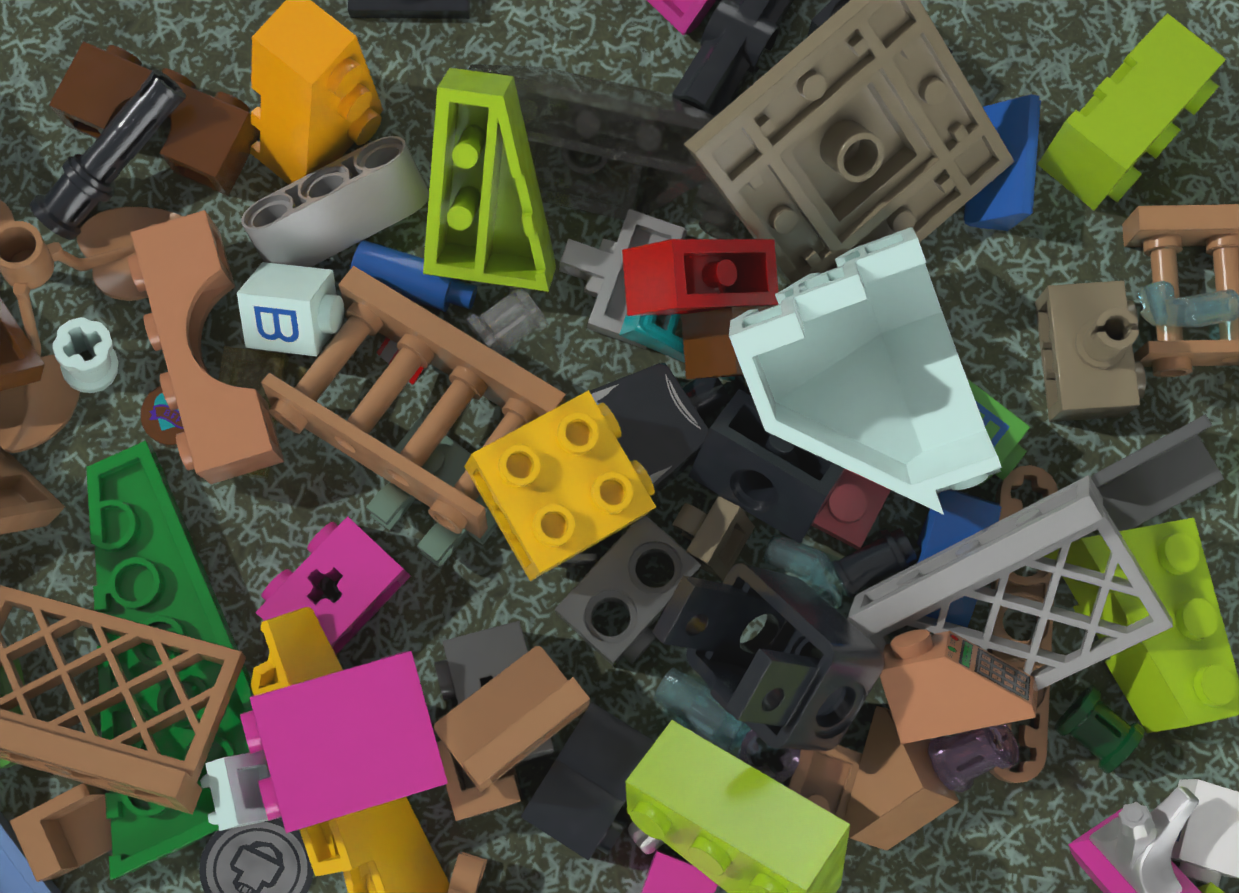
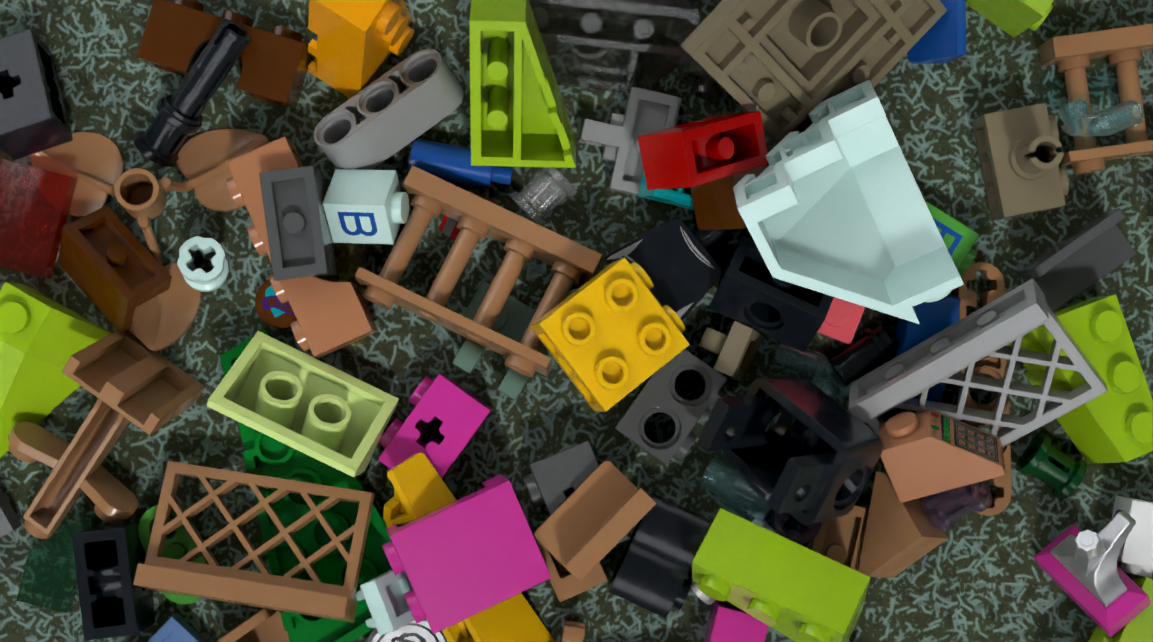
camera: 10 degrees left, 10 degrees up
(178, 532) = (305, 404): none -> yellowish green slope
(202, 311) = (297, 223): none -> dark grey panel

